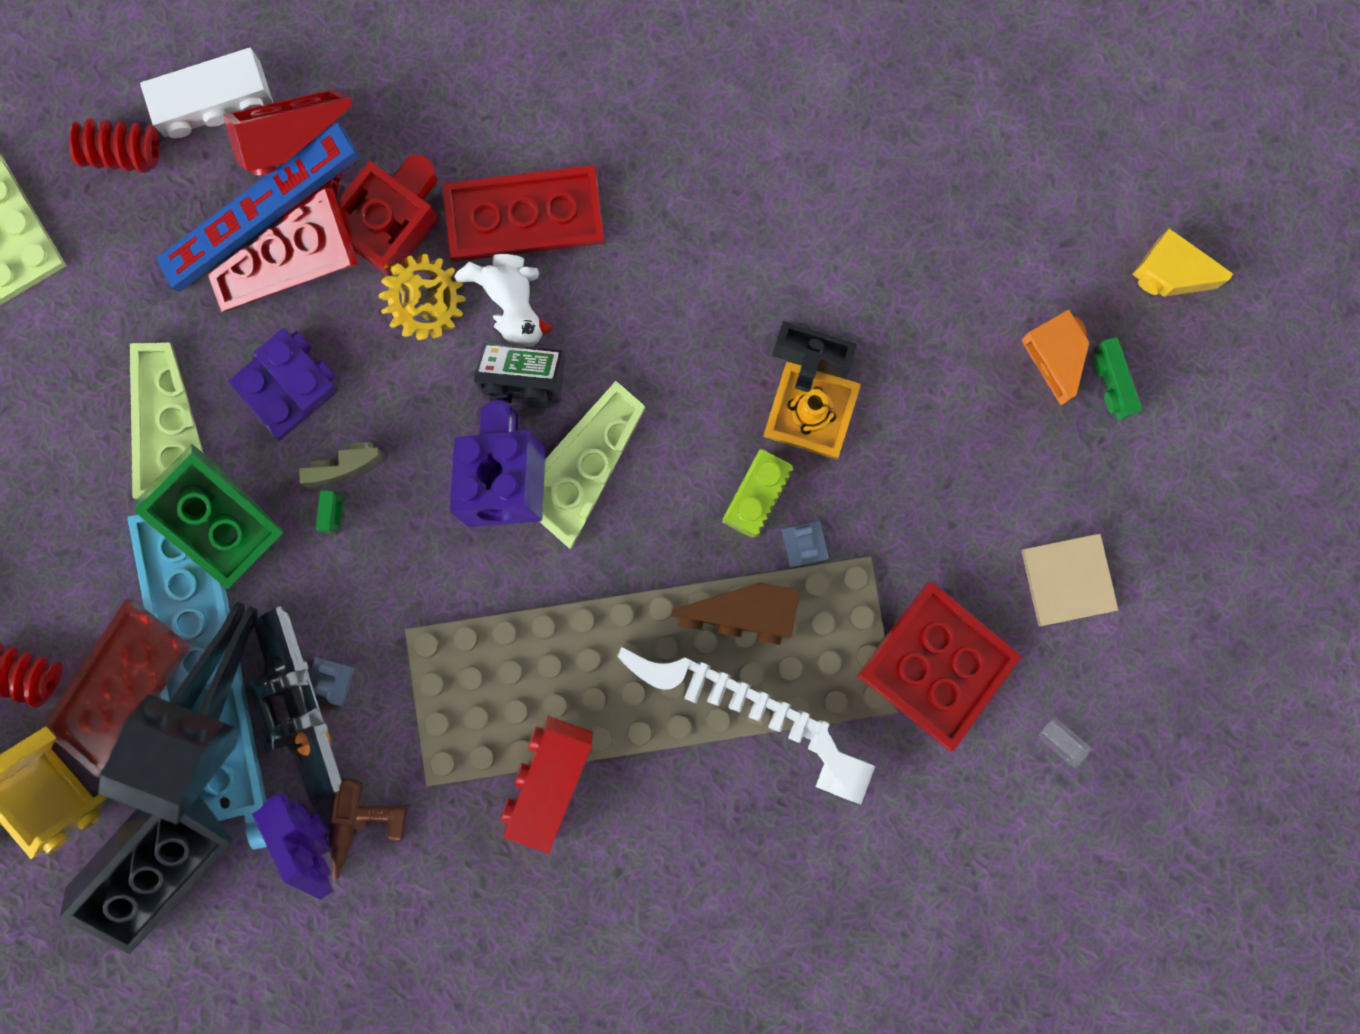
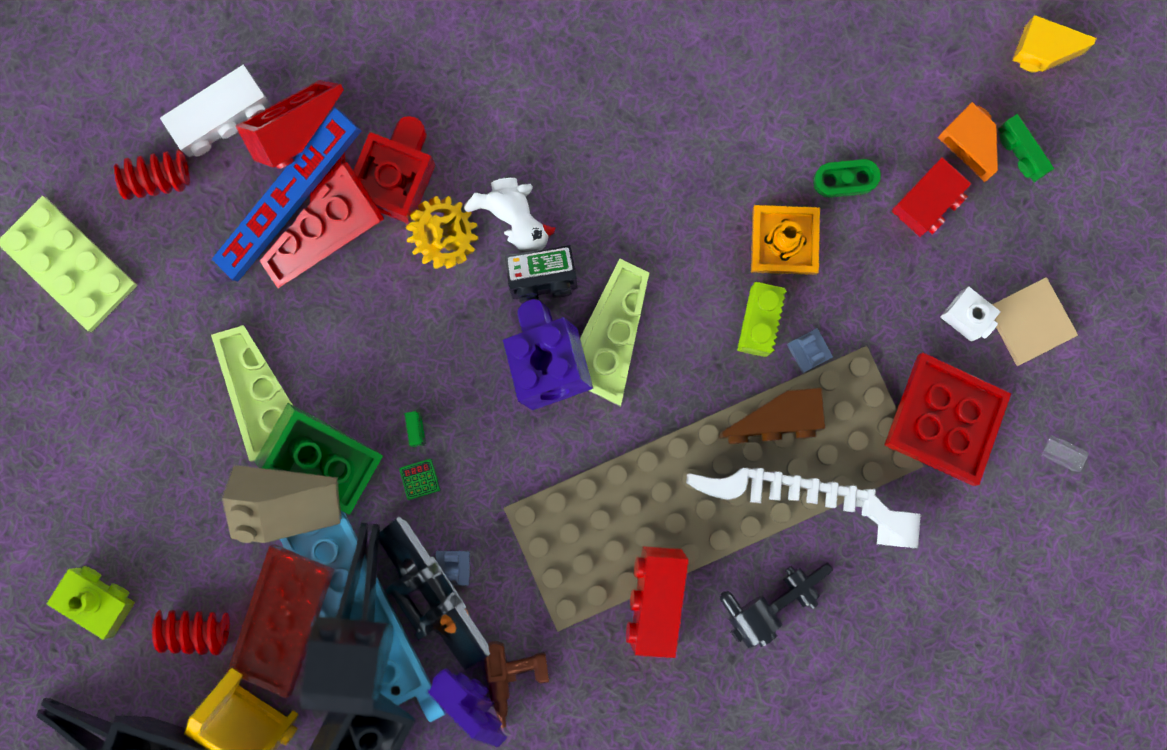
camera: 15 degrees left, 0 degrees up
(144, 554) = (278, 504): none -> dark tan slope
(284, 383) = (347, 333): dark purple plate -> none
(320, 571) = (419, 479): none -> tile
(352, 463) = (423, 382): olive slope -> none
(523, 213) = (504, 141): red plate -> none
(657, 836) = (758, 619): none -> black piece
(814, 353) = (775, 192): black plate -> none
(901, 357) = (845, 178): none -> green plate
(986, 553) = (971, 315): none -> white brick
(993, 406) = (931, 198): none -> red brick

